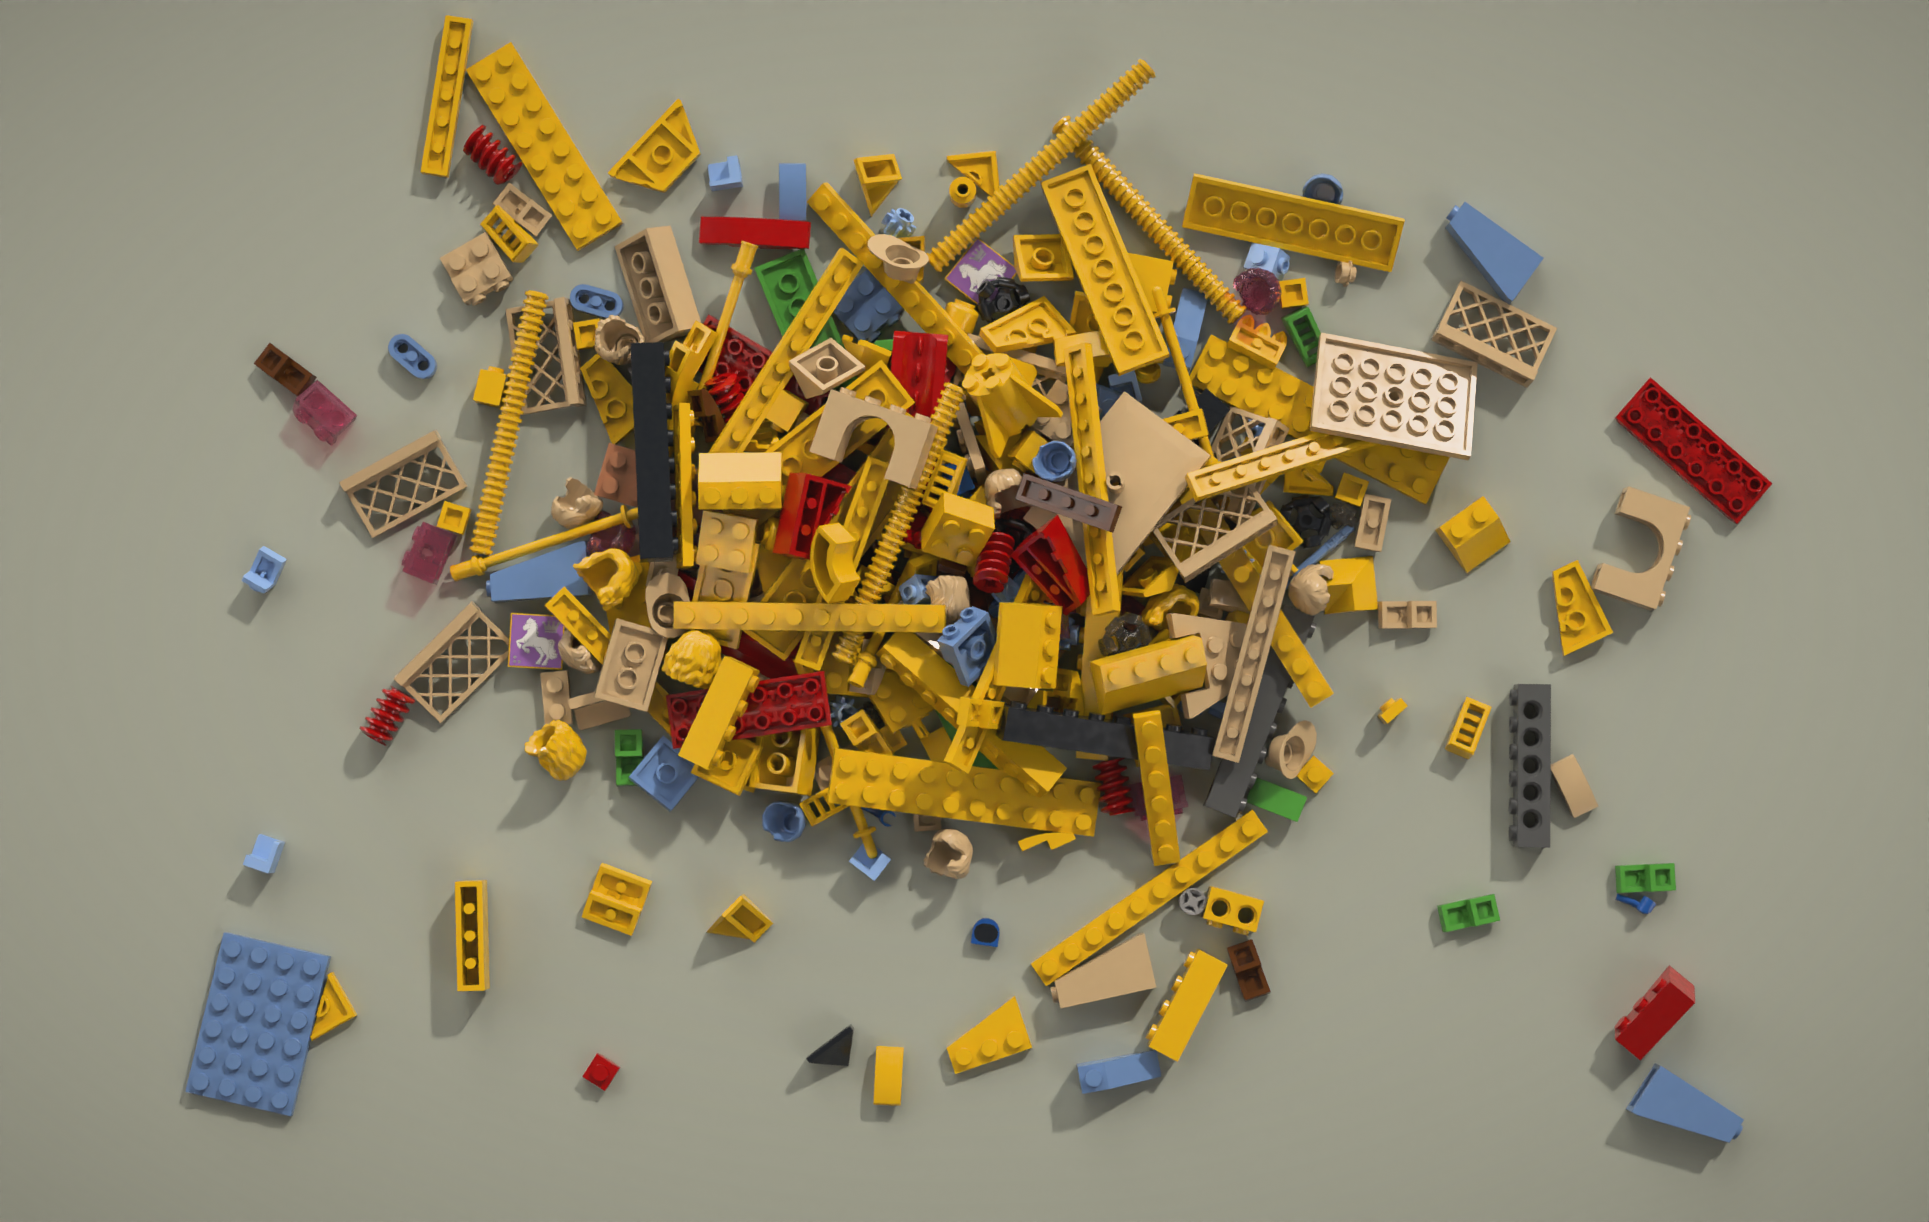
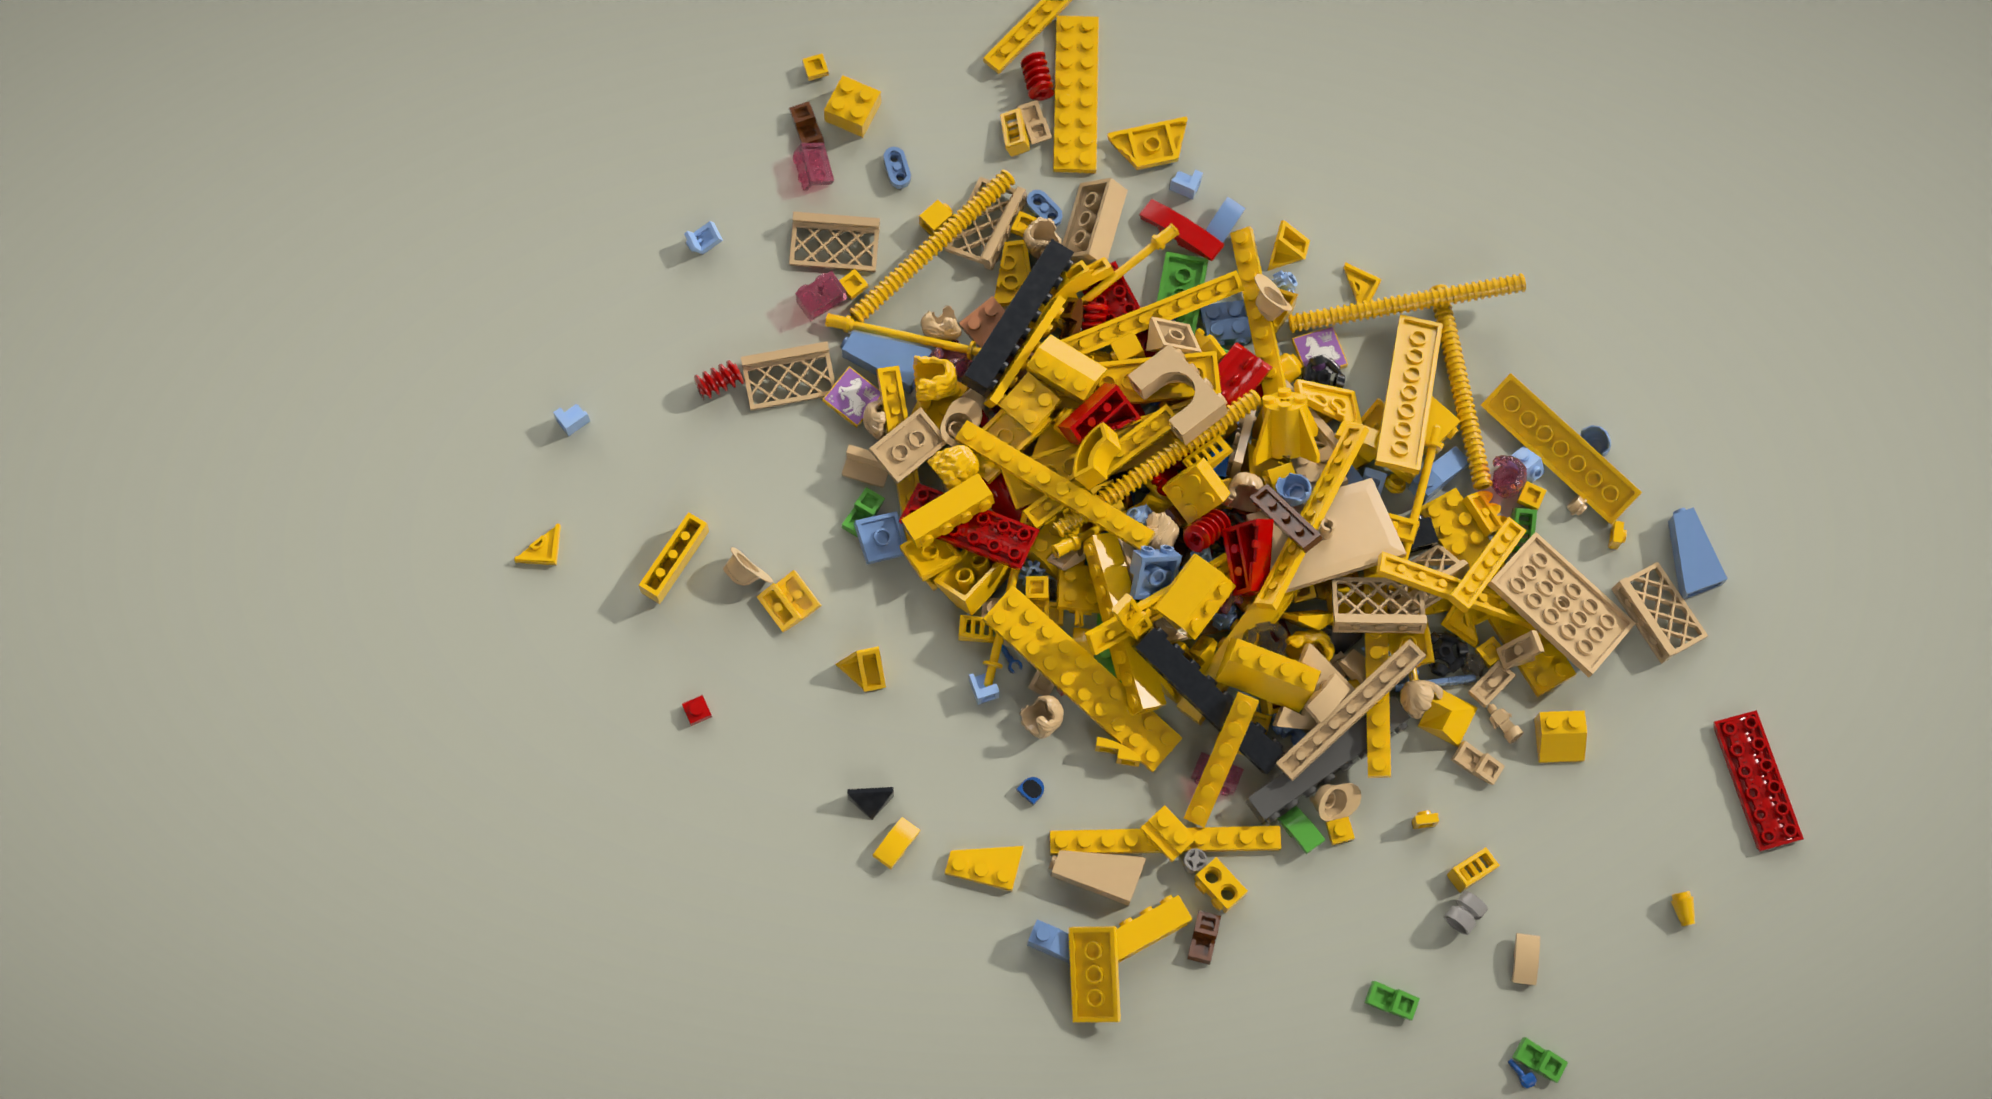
camera: 25 degrees right, 15 degrees down
(250, 298) = (815, 67): none -> yellow plate
(258, 1024) = (485, 526): medium blue plate -> none
(319, 318) = (852, 106): none -> yellow brick
(477, 269) = (978, 141): tan plate -> none
(552, 899) = (742, 570): none -> tan piece
(555, 696) = (838, 443): tan plate -> none
(558, 749) = (818, 474): yellow hair -> none
(784, 821) = (941, 620): medium blue hair -> none
(962, 200) = (1341, 289): yellow brick -> none
(1041, 258) = (1369, 364): yellow slope -> none
(1113, 787) = (1188, 744): red piece -> none
(1149, 893) = (1168, 833): none -> yellow plate
(1167, 1083) = (1094, 974): none -> yellow plate
(1224, 658) = (1327, 698): none -> tan slope
(1297, 410) = (1486, 565): none -> yellow plate
(1382, 474) = (1520, 650): none -> tan slope
(1404, 279) = (1617, 535): none -> yellow plate
(1404, 554) = (1501, 719): none -> tan piece
(1488, 779) = (1468, 910): none -> light grey wheel
(1540, 752) = (1538, 877): dark grey brick -> none
(1577, 608) = (1605, 837): yellow wing -> none
(1667, 522) = (1663, 850): tan arch -> none
(1695, 631) = (1684, 907): none -> yellow cone

